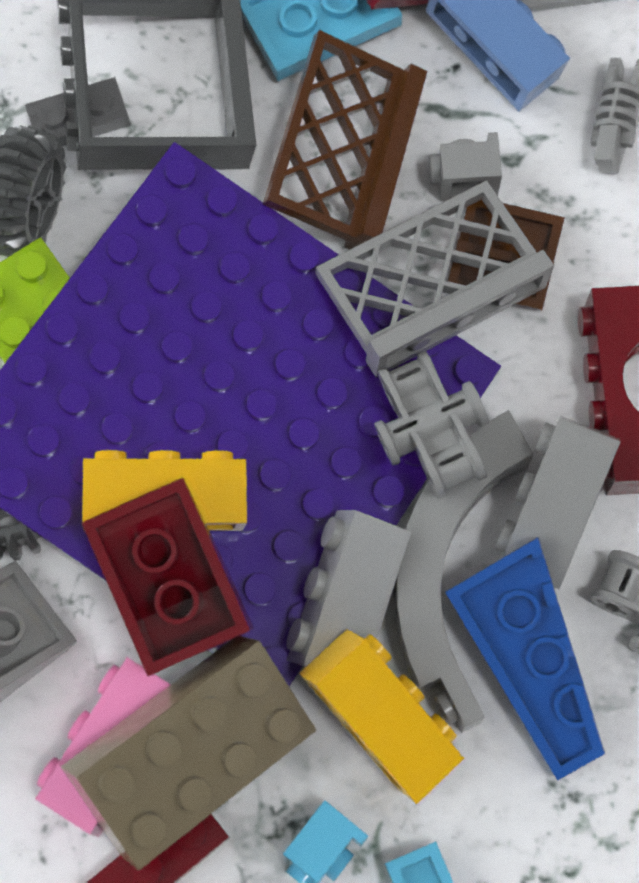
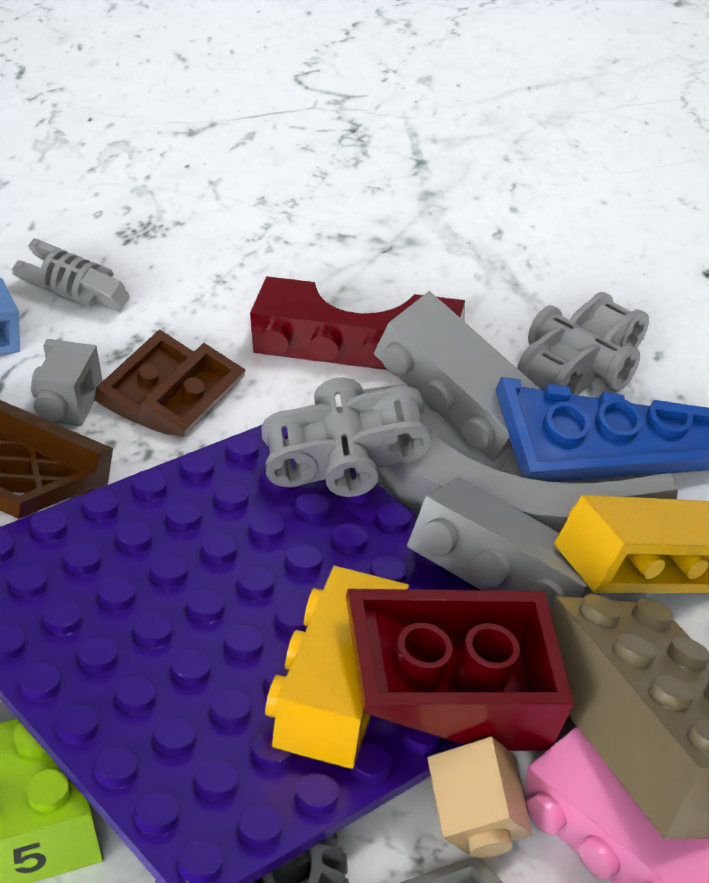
camera: 75 degrees left, 30 degrees down
(94, 632) = (480, 798): none -> tan brick
(455, 312) = (219, 400): light grey fence -> none

